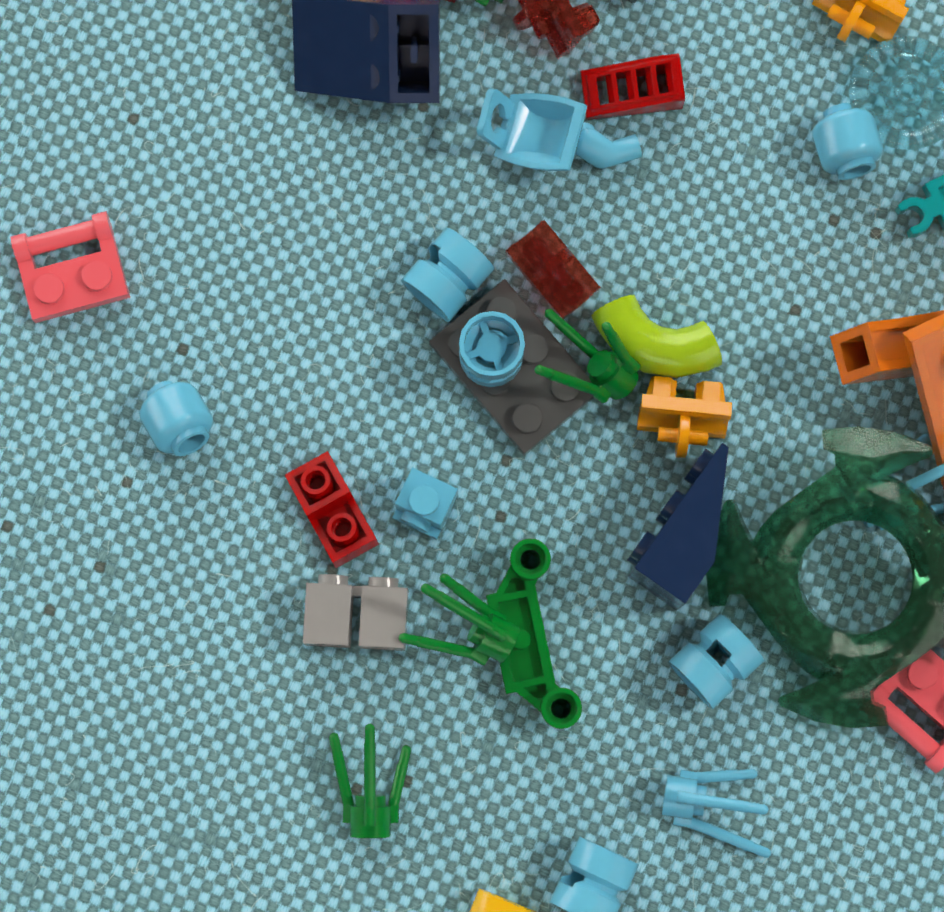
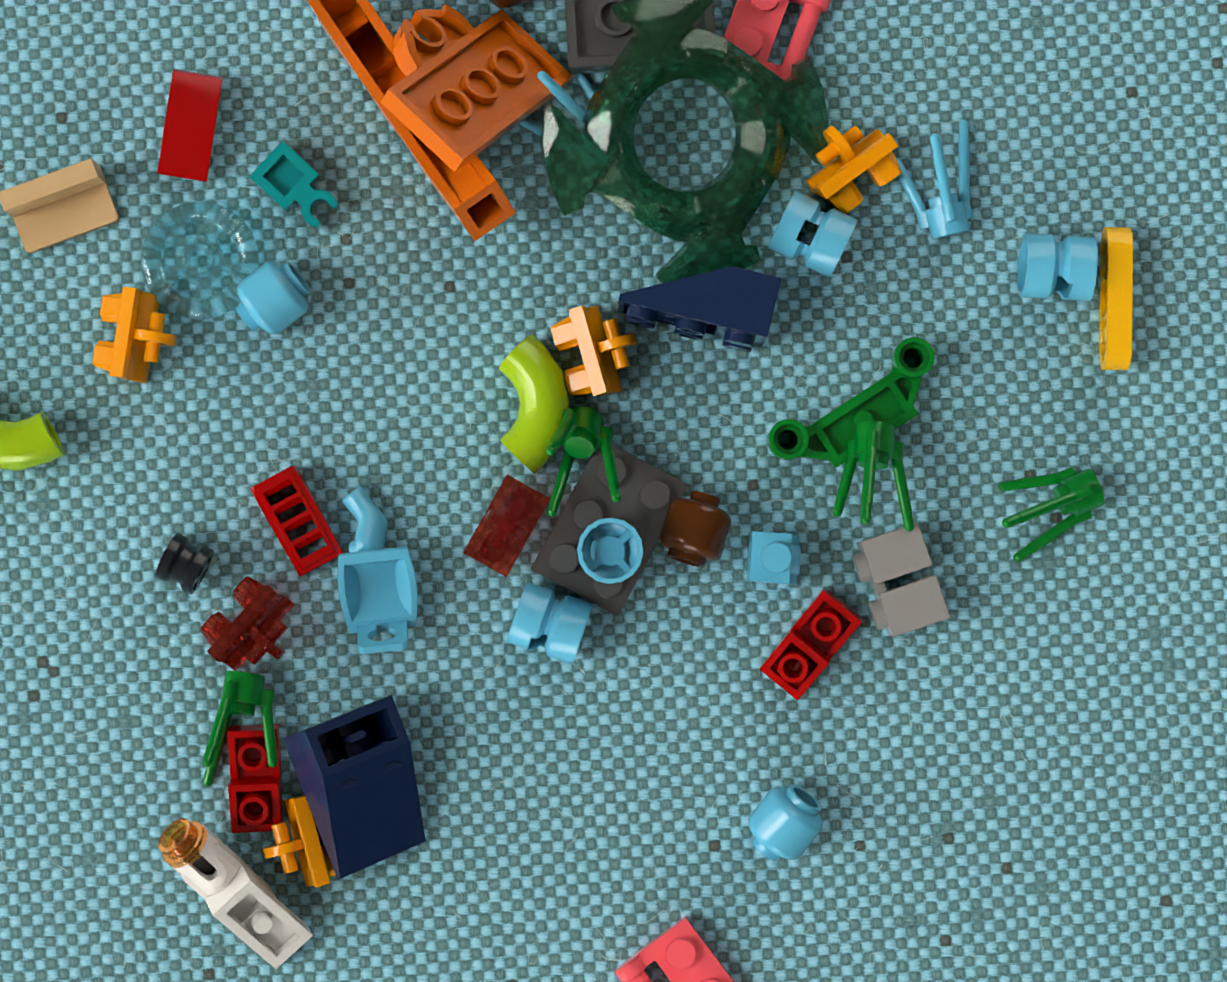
camera: 110 degrees left, 5 degrees up
(480, 442) = (695, 529): none -> reddish brown head
(771, 748) = (869, 154): none -> light orange hips

